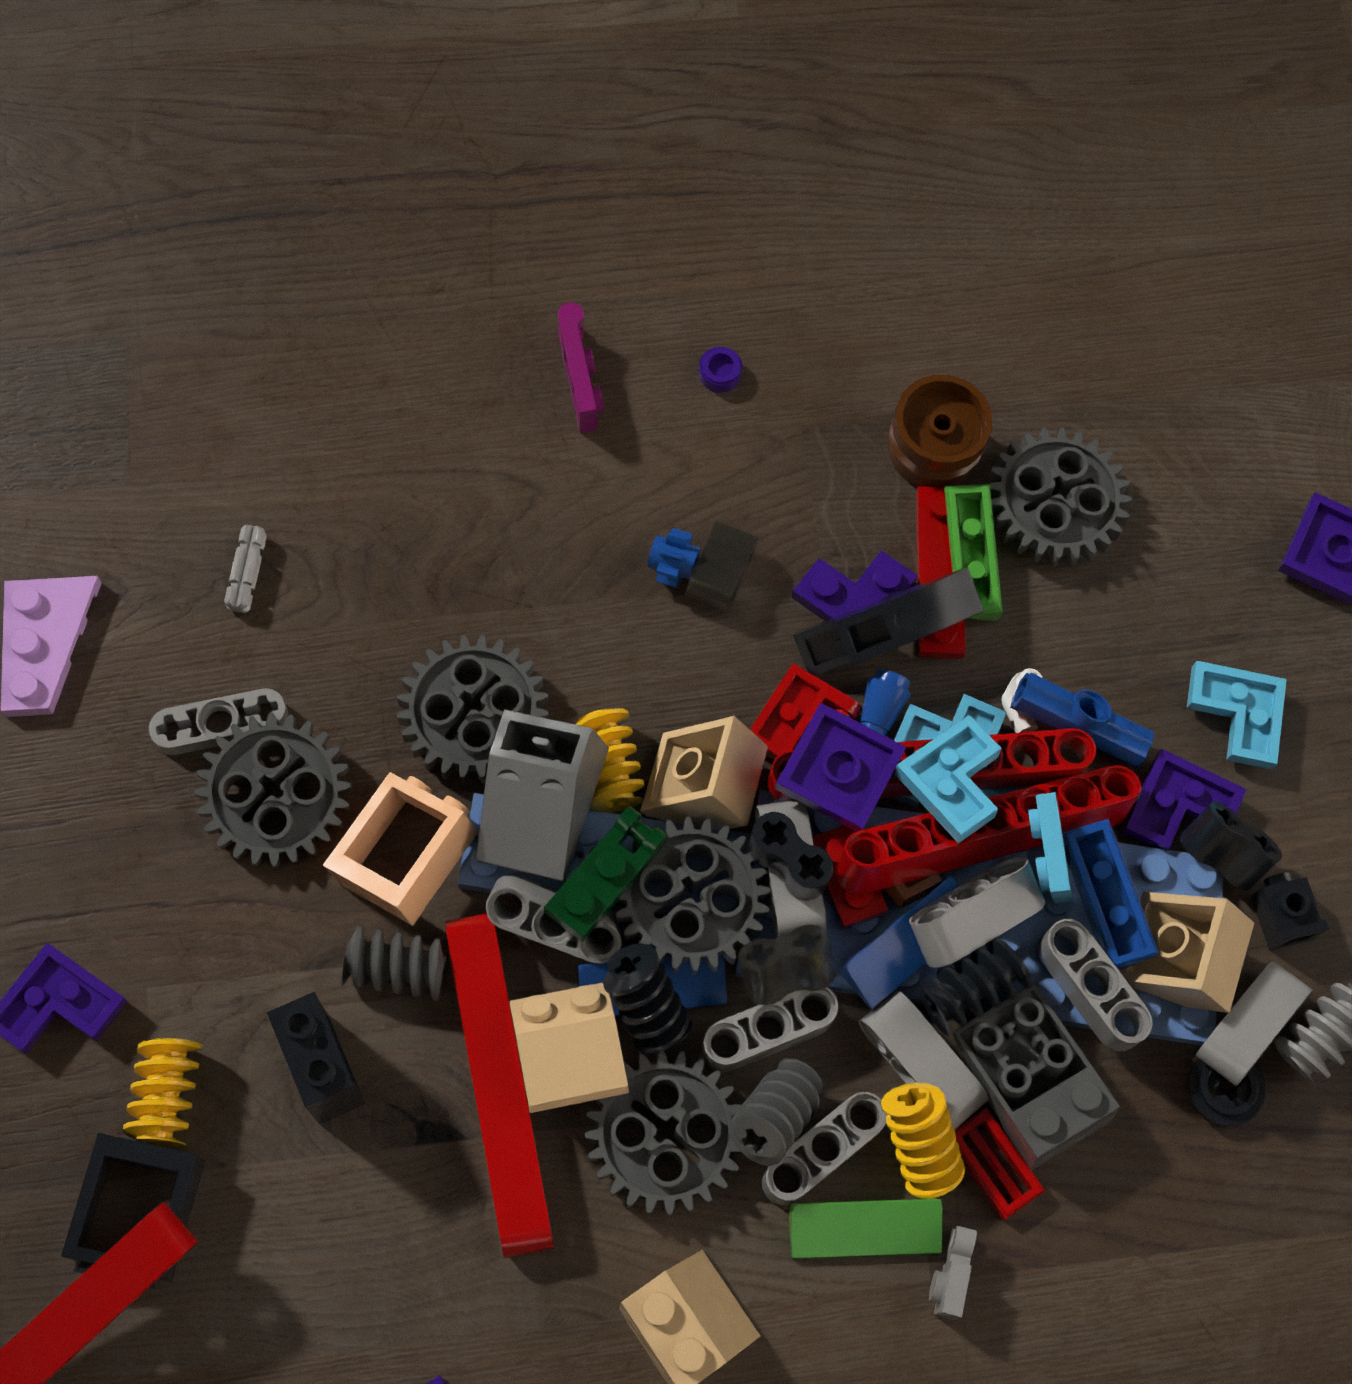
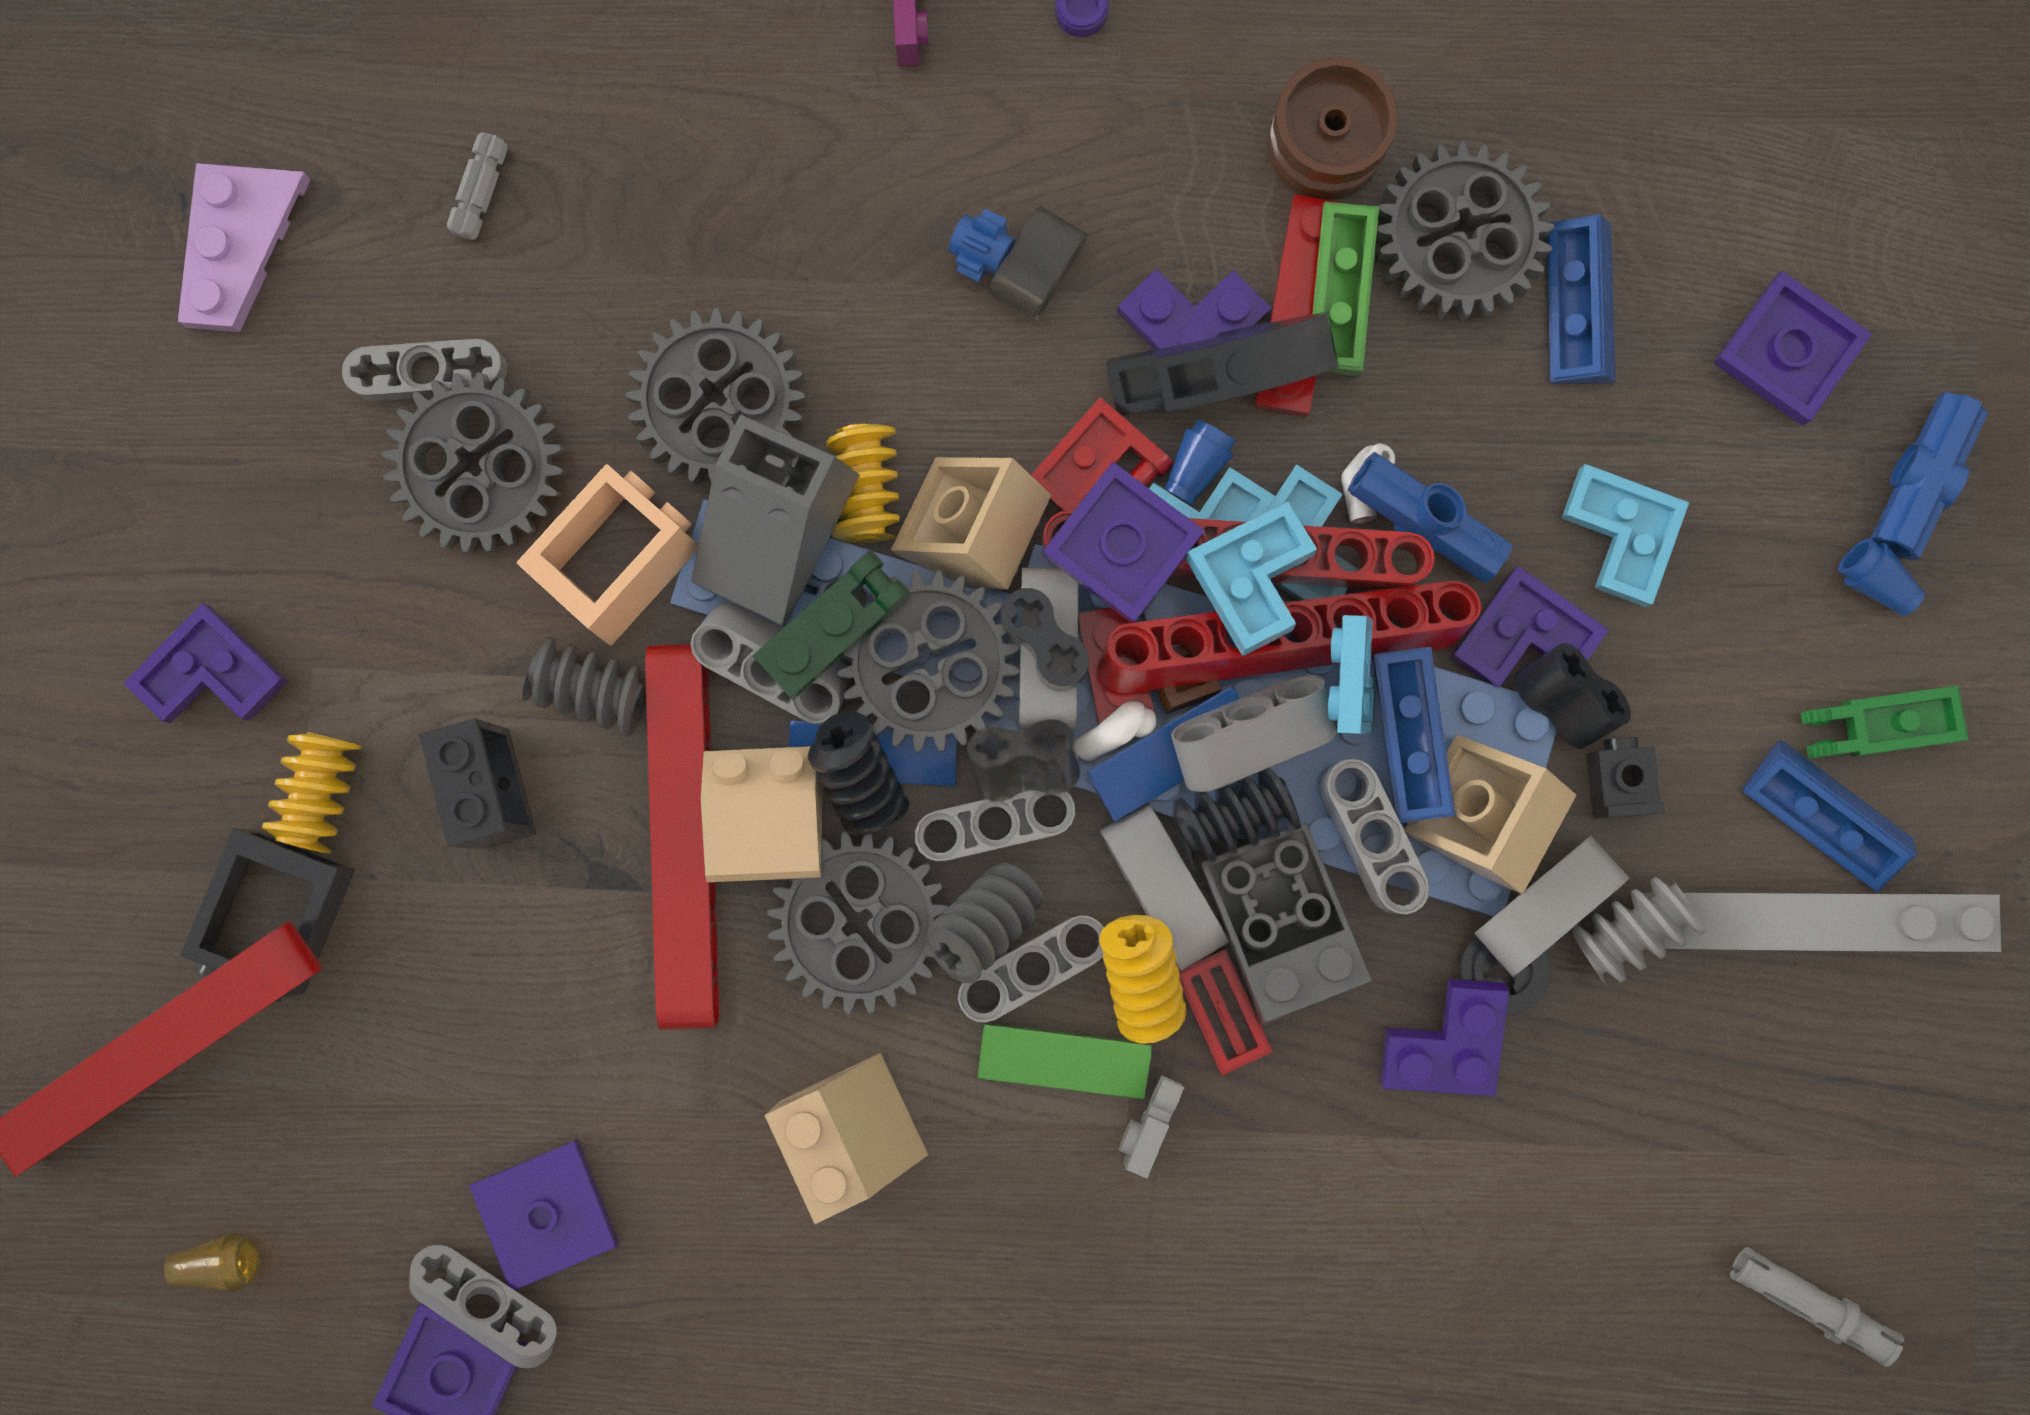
camera: 15 degrees right, 15 degrees up
(868, 919) = (1117, 729): none -> white arm
(1162, 539) = (1581, 301): none -> blue slope
(1206, 1168) = (1462, 1055): none -> dark purple plate

